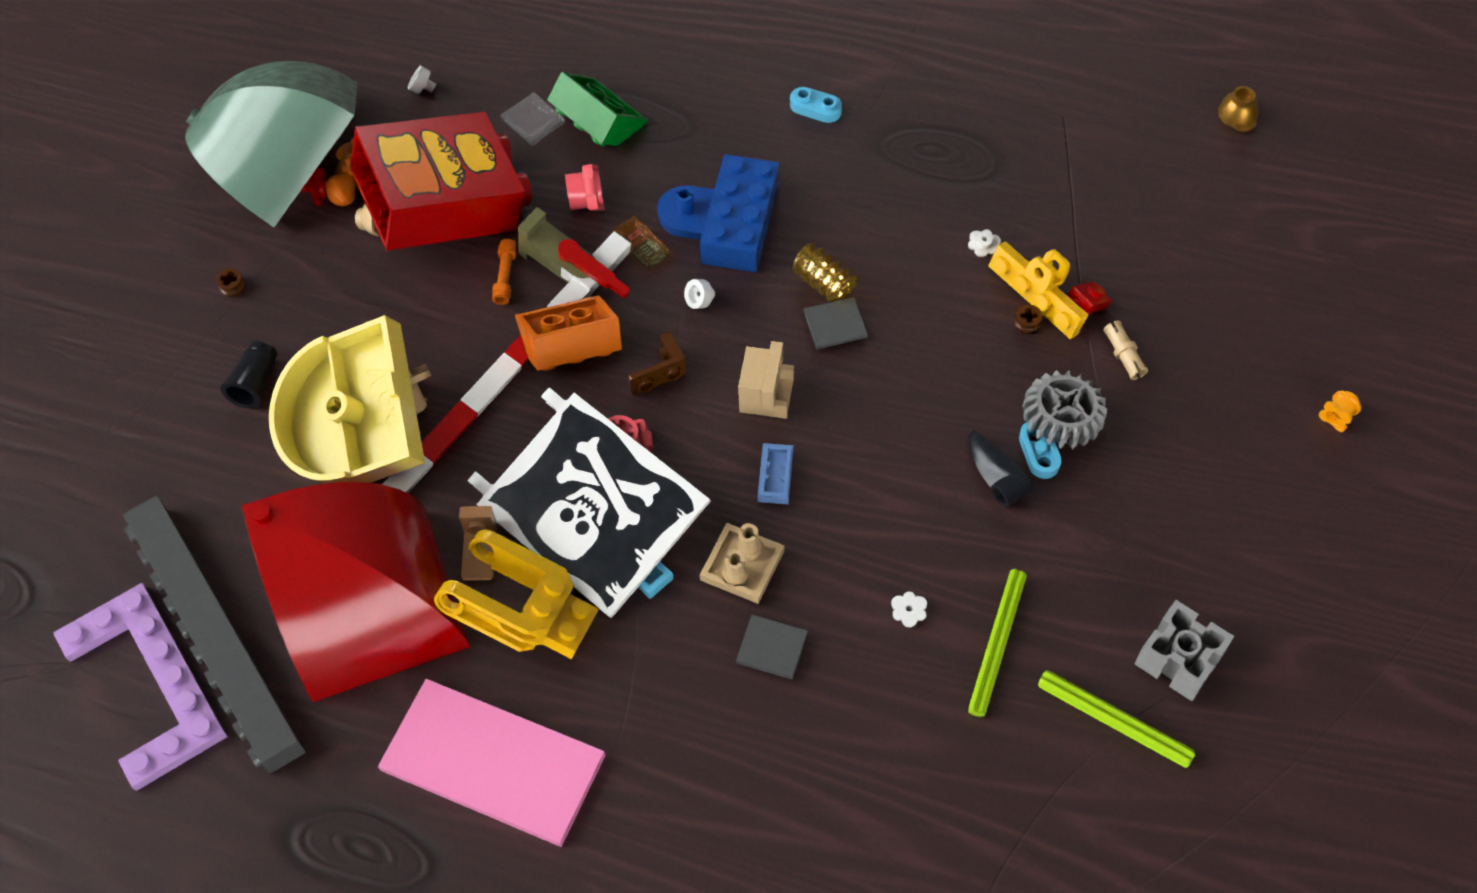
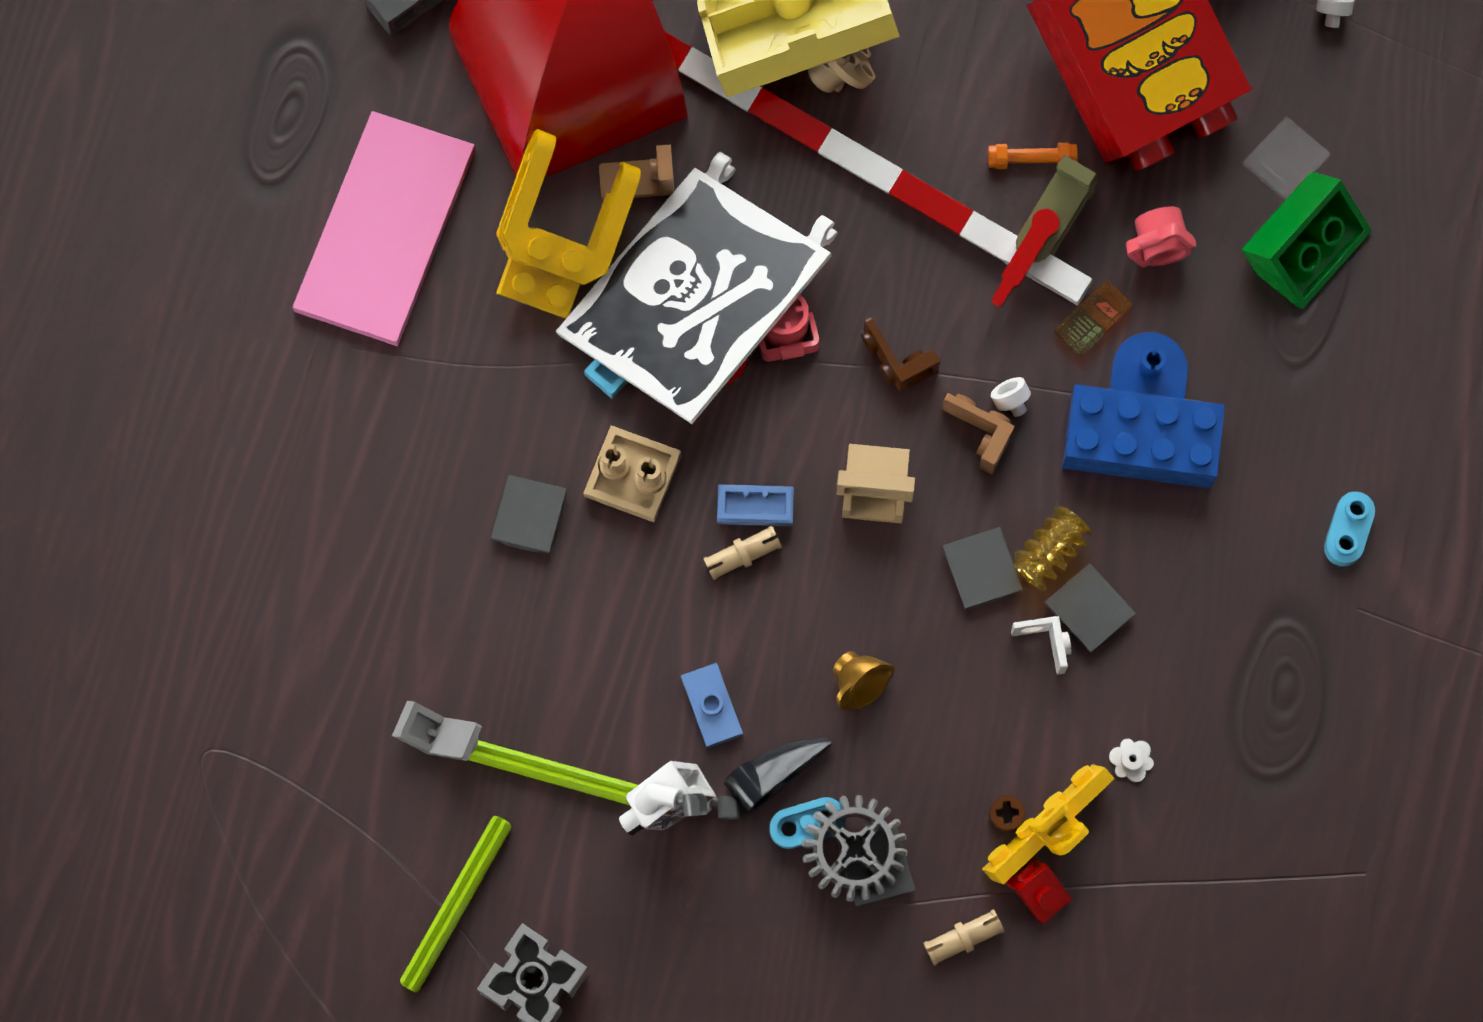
camera: 85 degrees right, 15 degrees up
(569, 332) = (934, 240): orange slope -> none
(730, 301) = (993, 422): none -> medium nougat bracket
(815, 484) = (742, 552): none -> tan pin
(869, 257) = (1090, 608): none -> dark grey piece
(897, 276) = (1059, 640): none -> white bracket
(909, 601) = (588, 658): white plant -> none
(923, 405) = (860, 679): none -> pearl gold piece
(942, 515) = (711, 705): none -> medium blue plate
(972, 716) = (436, 733): none -> light grey bracket
(1028, 534) = (671, 795): none -> white torso

